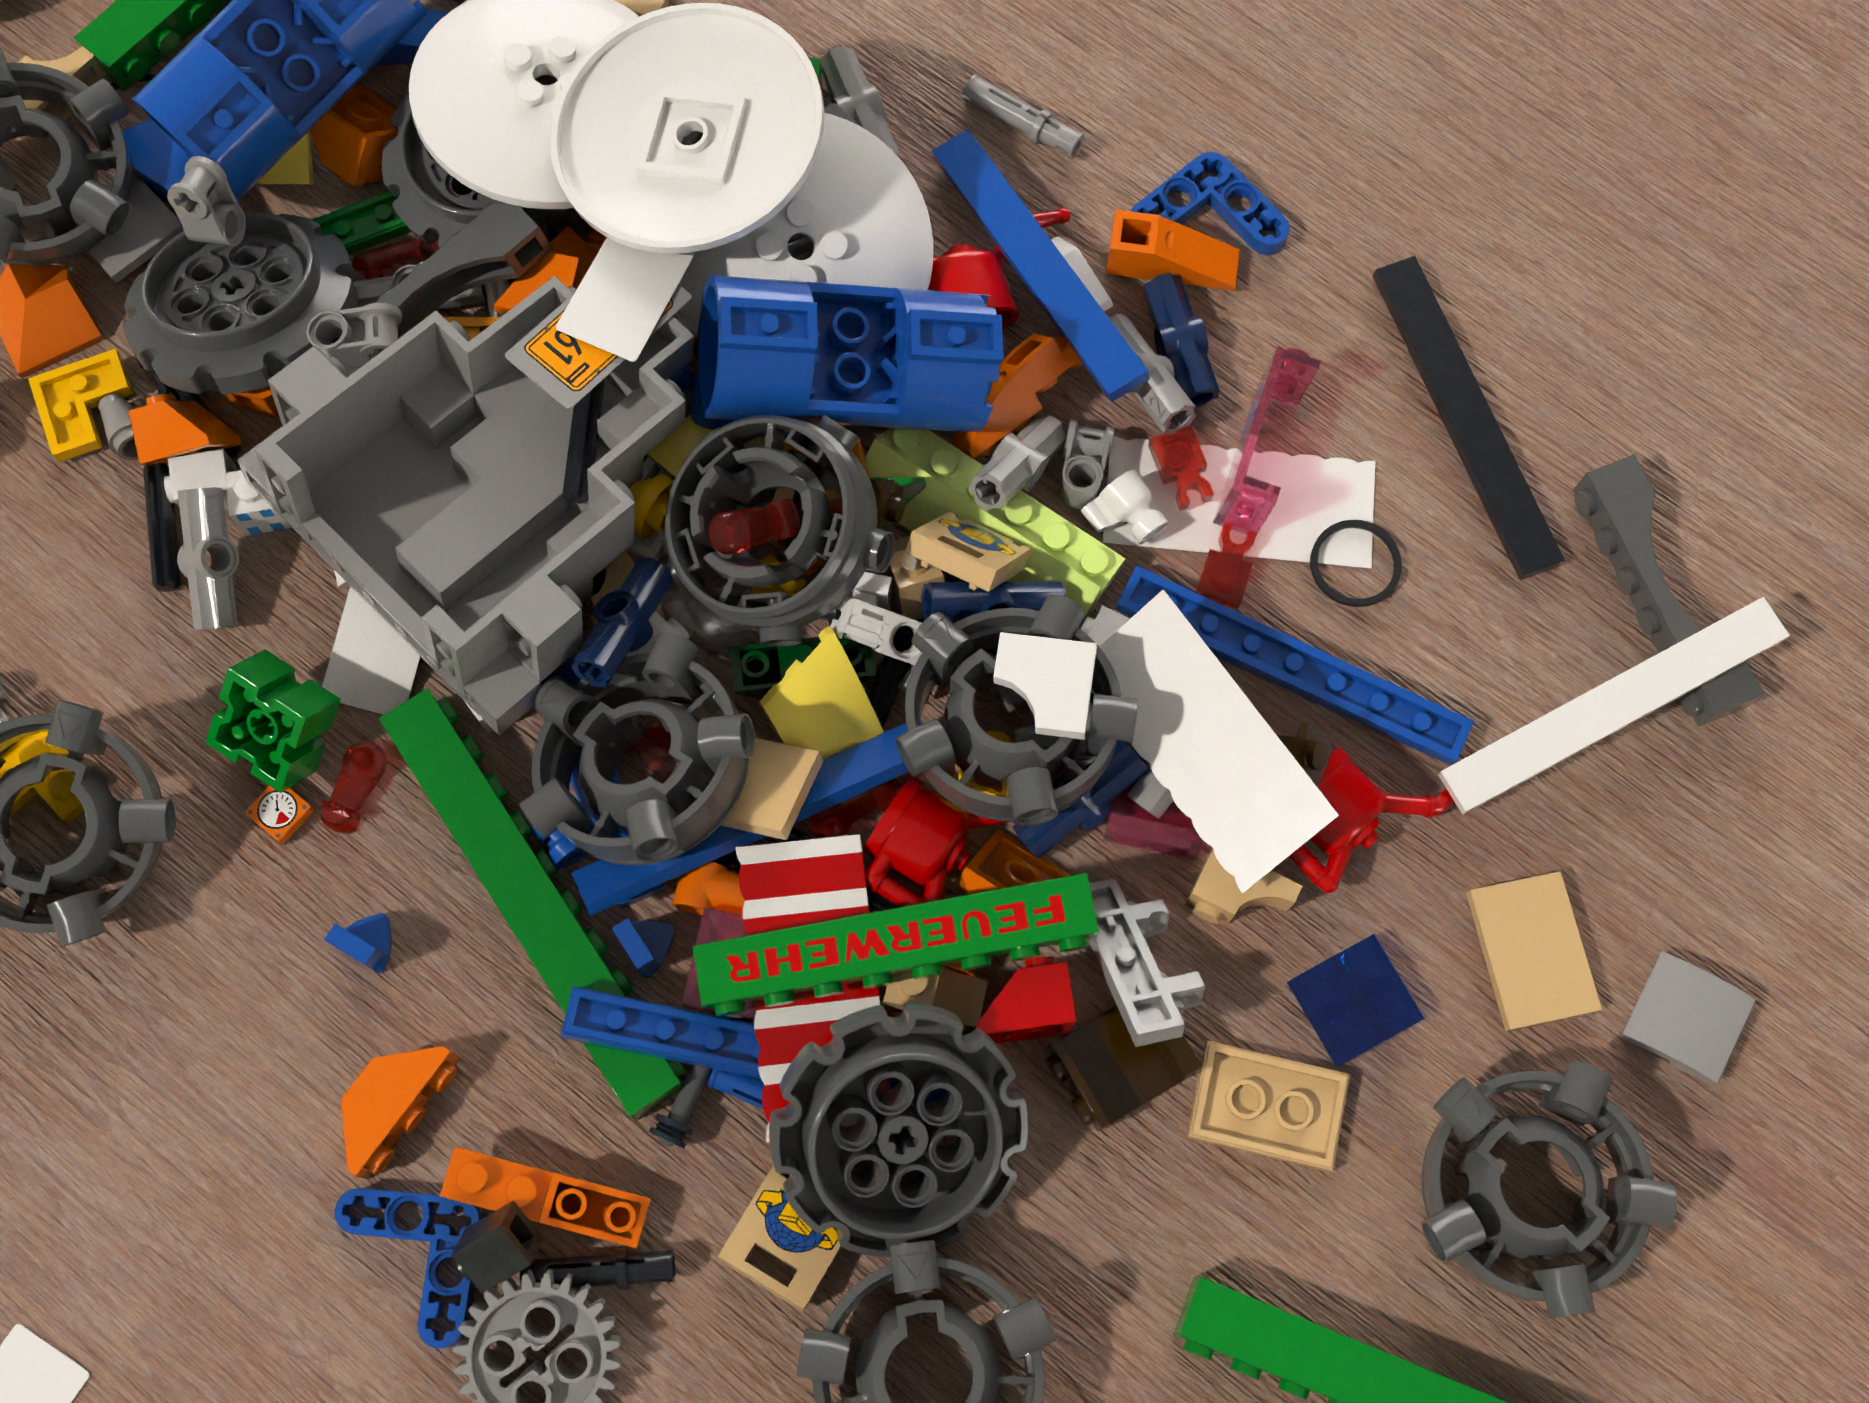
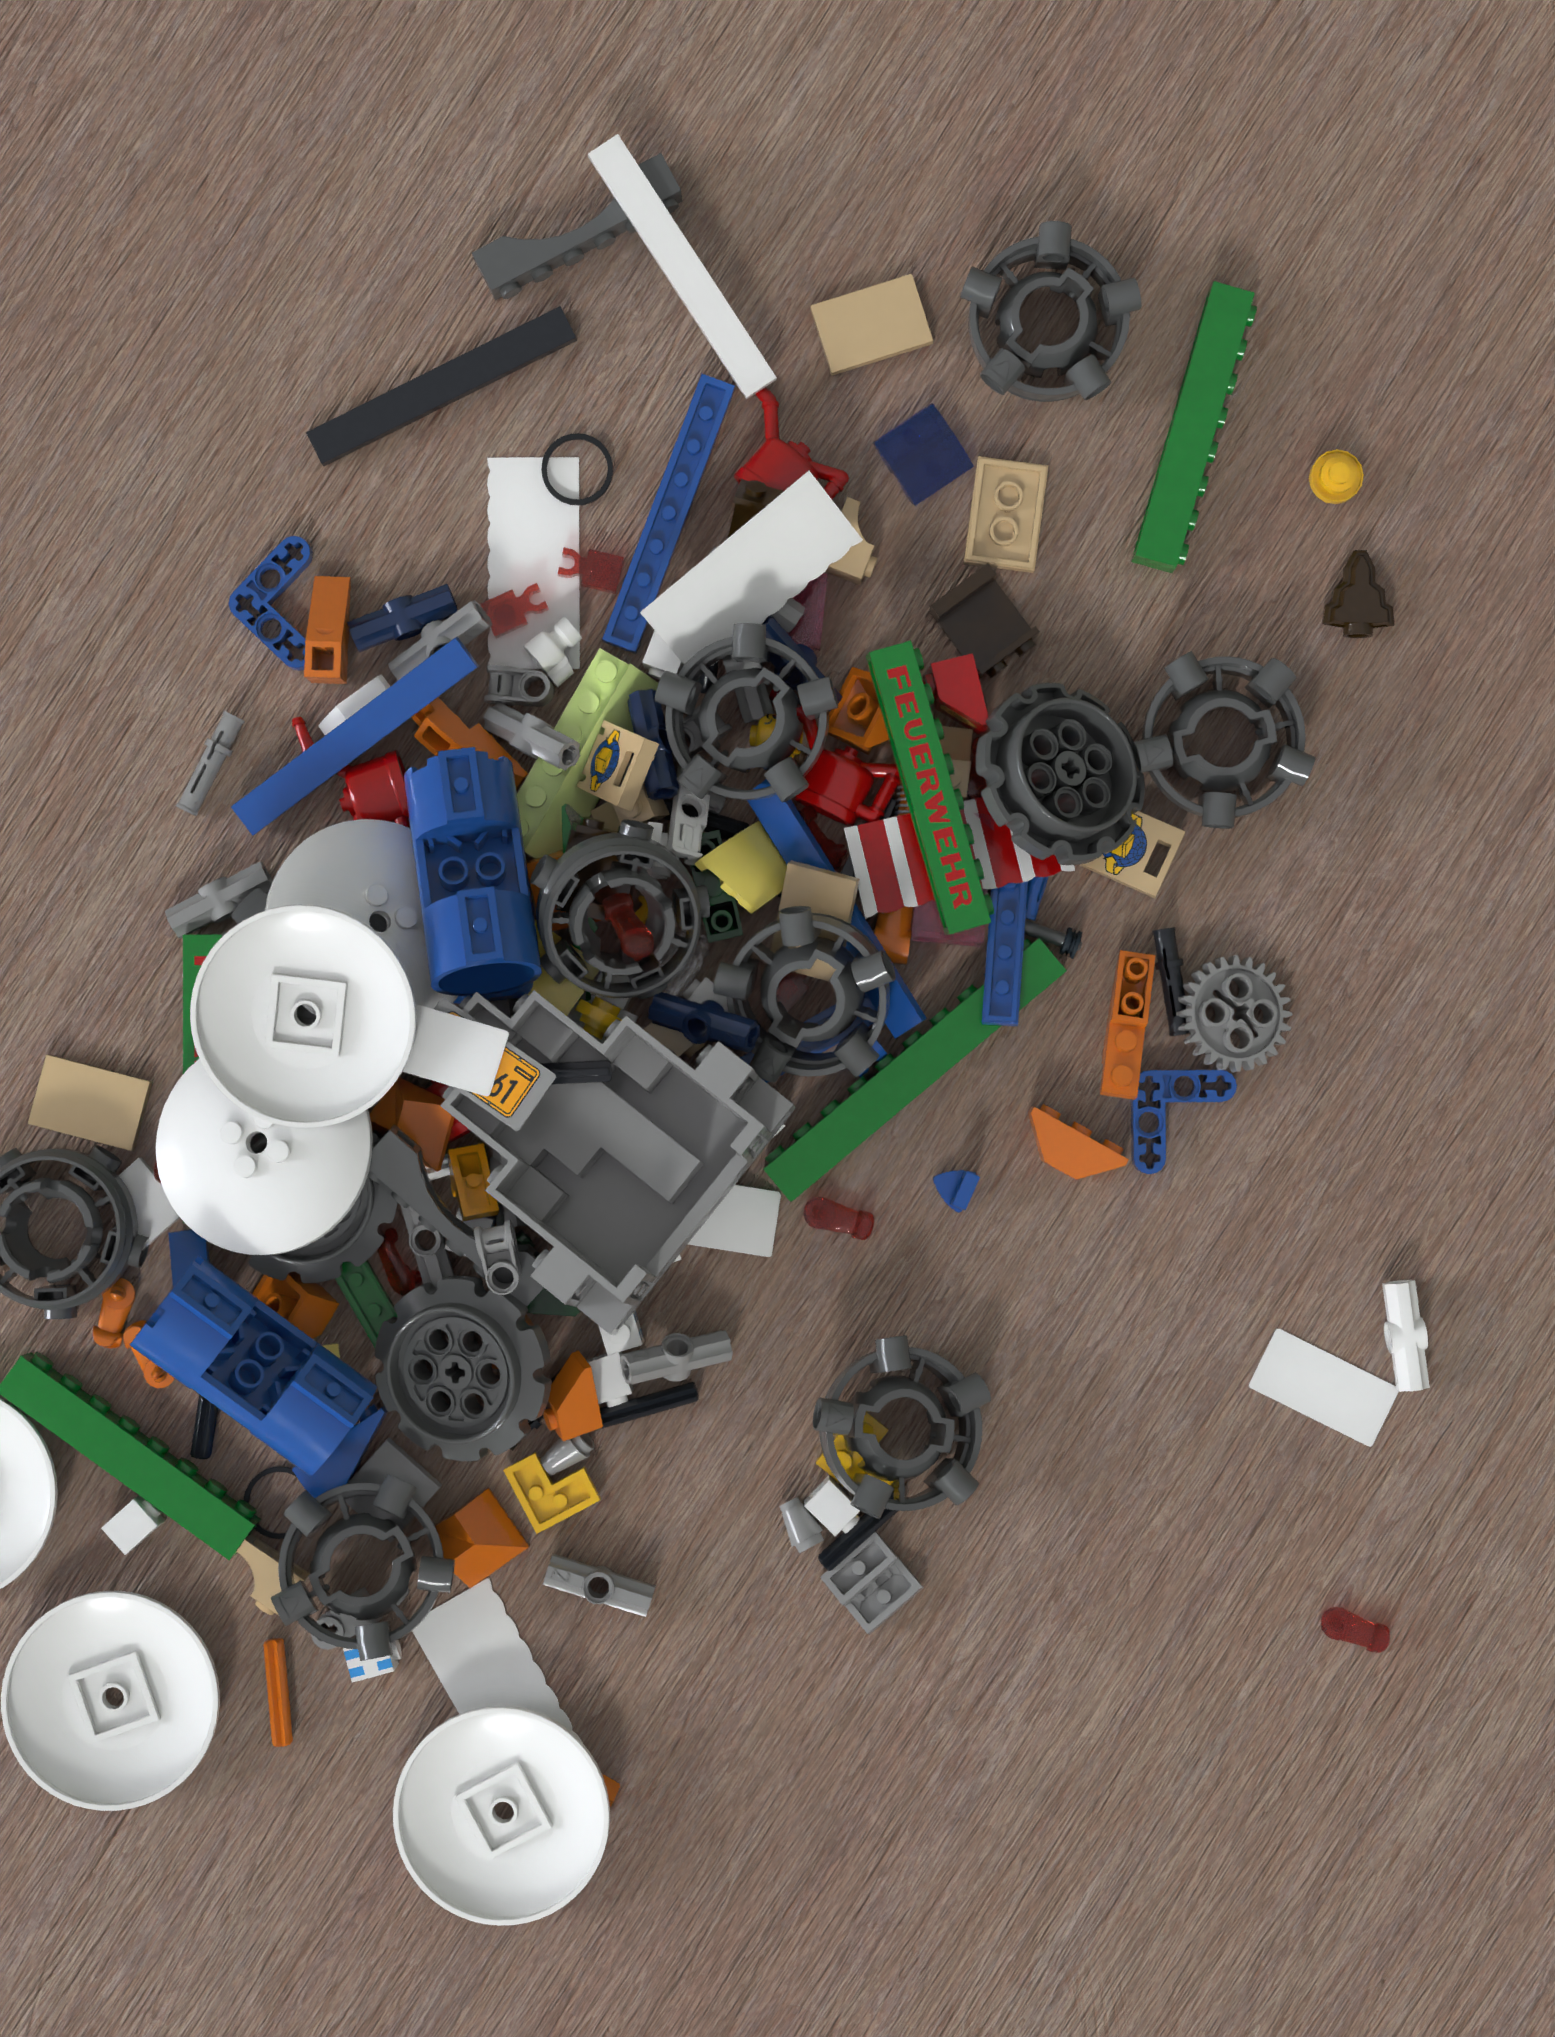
camera: 90 degrees left, 15 degrees up
(207, 204) = (399, 1396): light grey piece -> none
(272, 720) = (801, 1280): green brick -> none
(279, 813) = (863, 1270): tile -> none
(497, 1247) = (1167, 1050): pearl dark grey brick -> none
(646, 943) = (935, 980): blue tile -> none
(1051, 677) = (724, 689): white tile -> none
(1143, 995) = (944, 607): light grey hinge -> none
(1244, 499) = (541, 567): clear pink panel -> none
(1689, 1018) = (910, 209): light grey slope -> none

